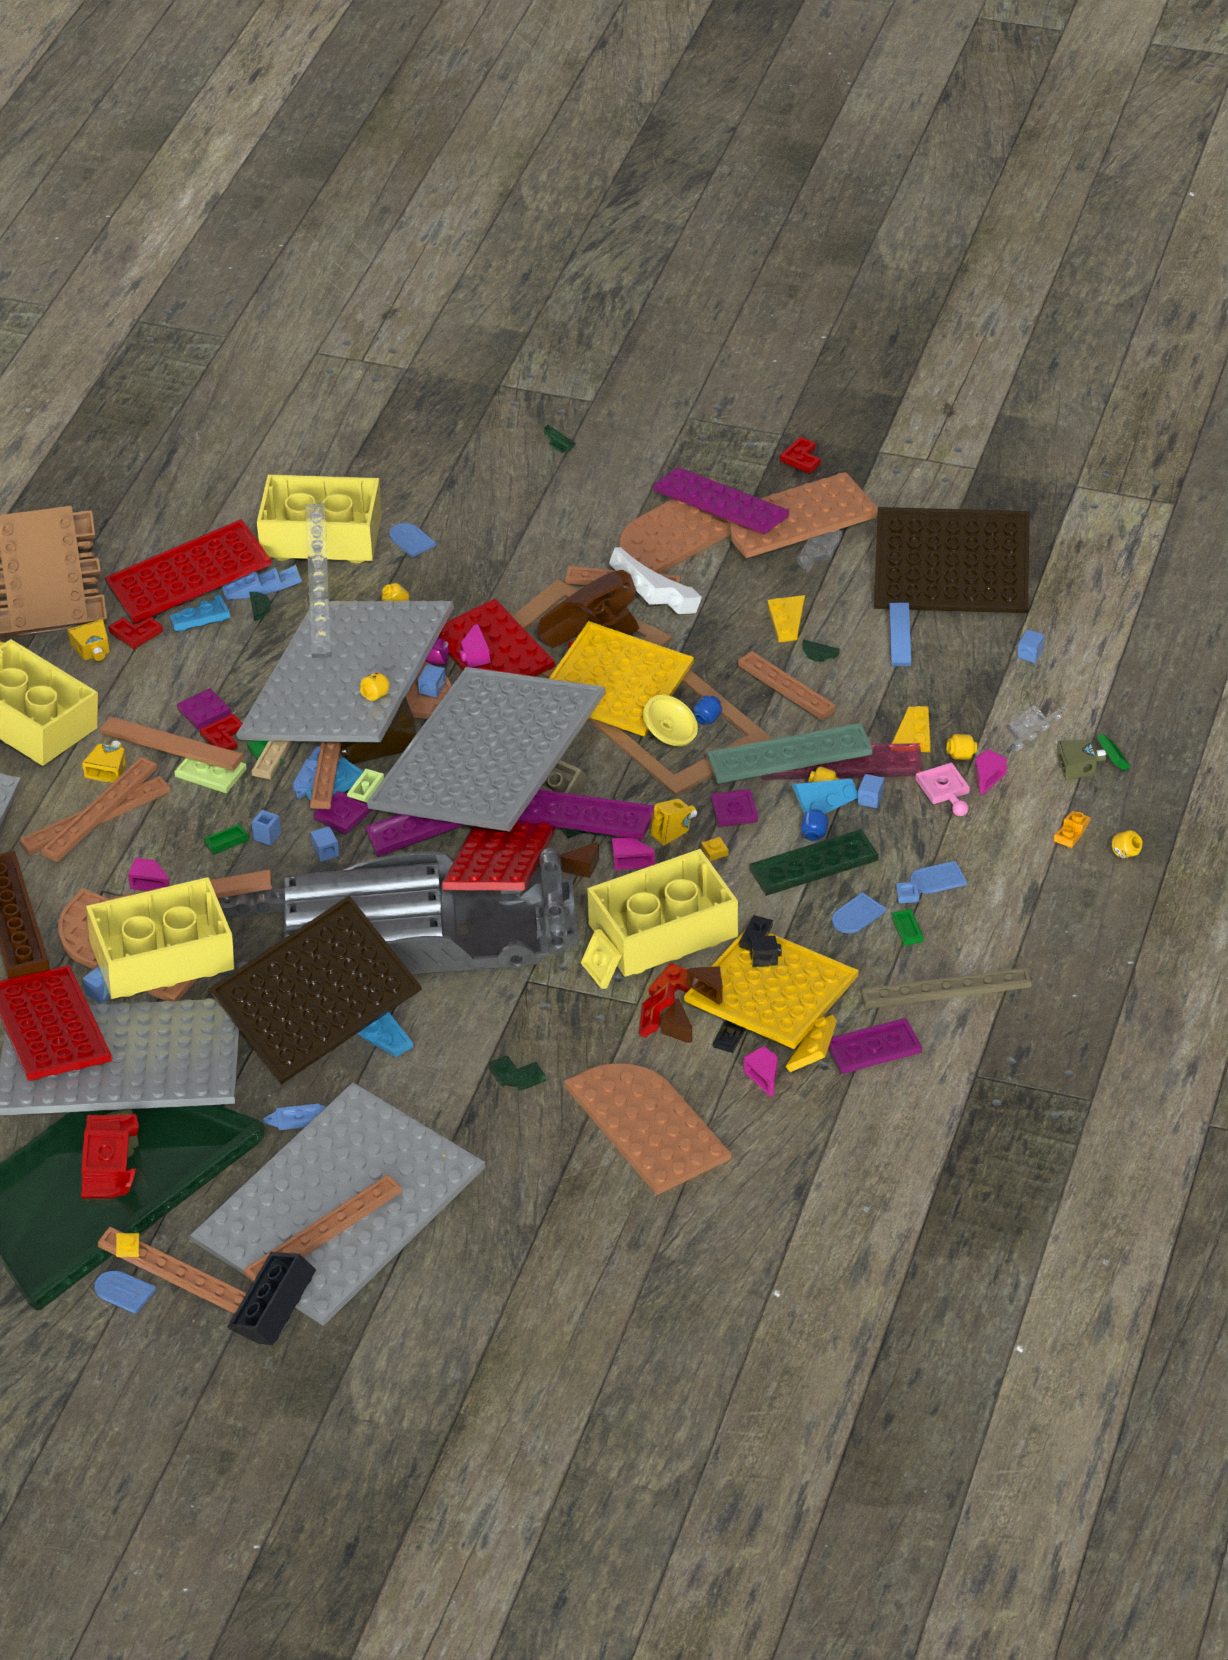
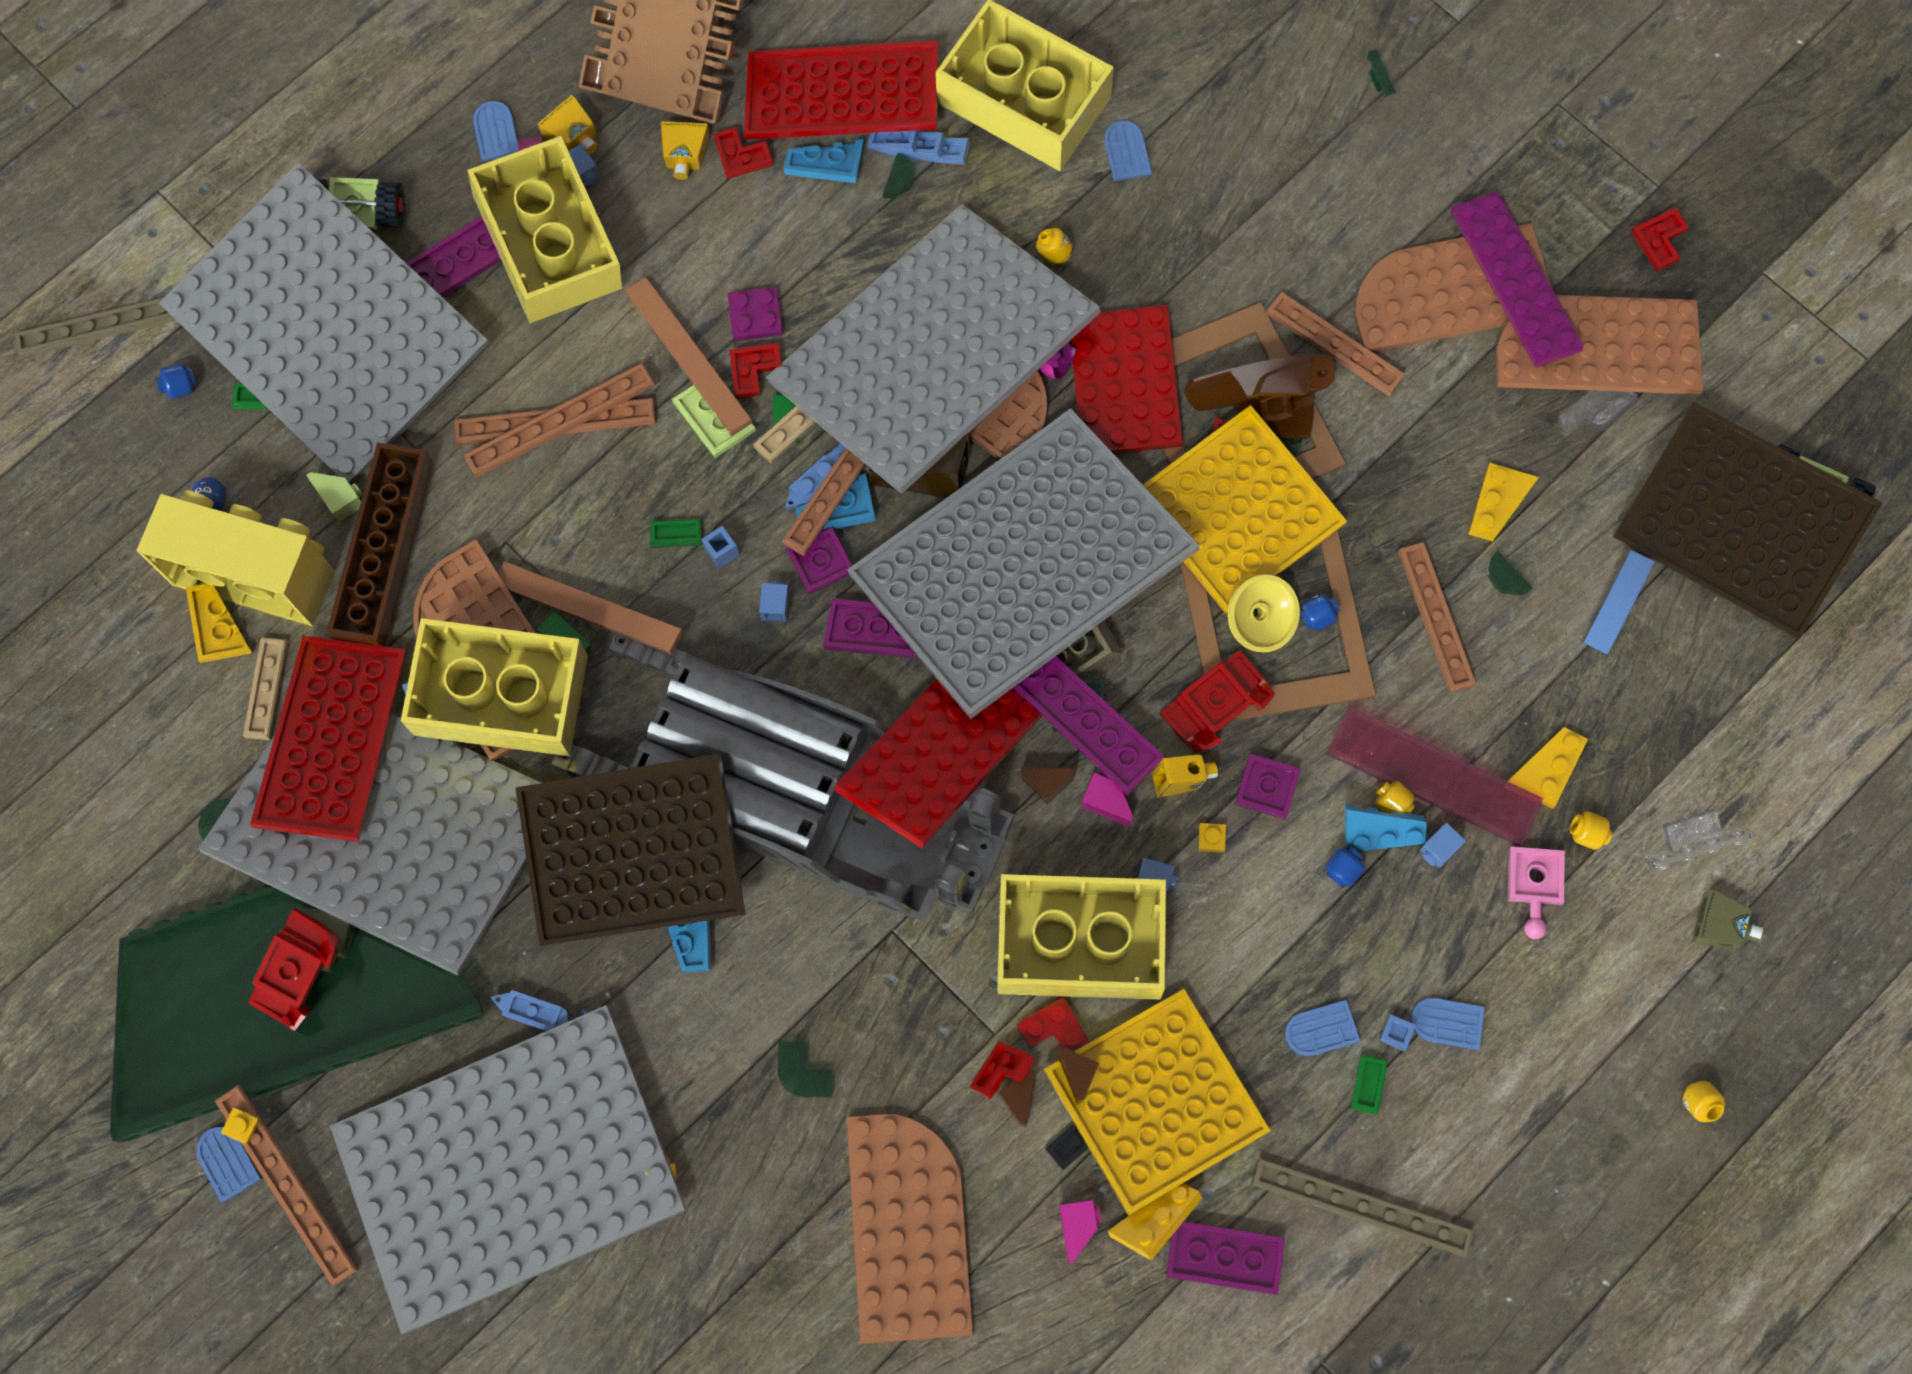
camera: 30 degrees right, 30 degrees up
(105, 762) = (604, 349): yellow torso -> none
(147, 875) = (559, 551): dark pink slope -> none
(272, 1297) = (355, 1284): black slope -> none
(318, 581) = (960, 199): clear plate -> none
(334, 1222) = (461, 1212): nougat tile -> none
(366, 785) = (857, 545): yellowish green slope -> none
(374, 686) = (931, 412): yellow head -> none
(431, 680) = (1020, 410): medium blue brick -> none
(474, 648) = (1095, 382): dark pink slope -> none
(601, 959) = (980, 959): light yellow tile -> none
(655, 587) = (1357, 381): white arch -> none
(669, 777) = (1216, 701): none -> red piece
(756, 928) = (1180, 1012): black plate -> none
(764, 951) = (1171, 1053): black brick -> none
(789, 753) = (1375, 741): sand green plate -> none
(813, 862) = (1314, 924): clear green plate -> none
(989, 769) = (1603, 883): dark pink slope -> none
(1031, 646) = (1768, 704): medium blue brick -> none
(1072, 829) = (1653, 1031): light orange slope -> none
(1113, 752) = (1773, 935): green tile -> none

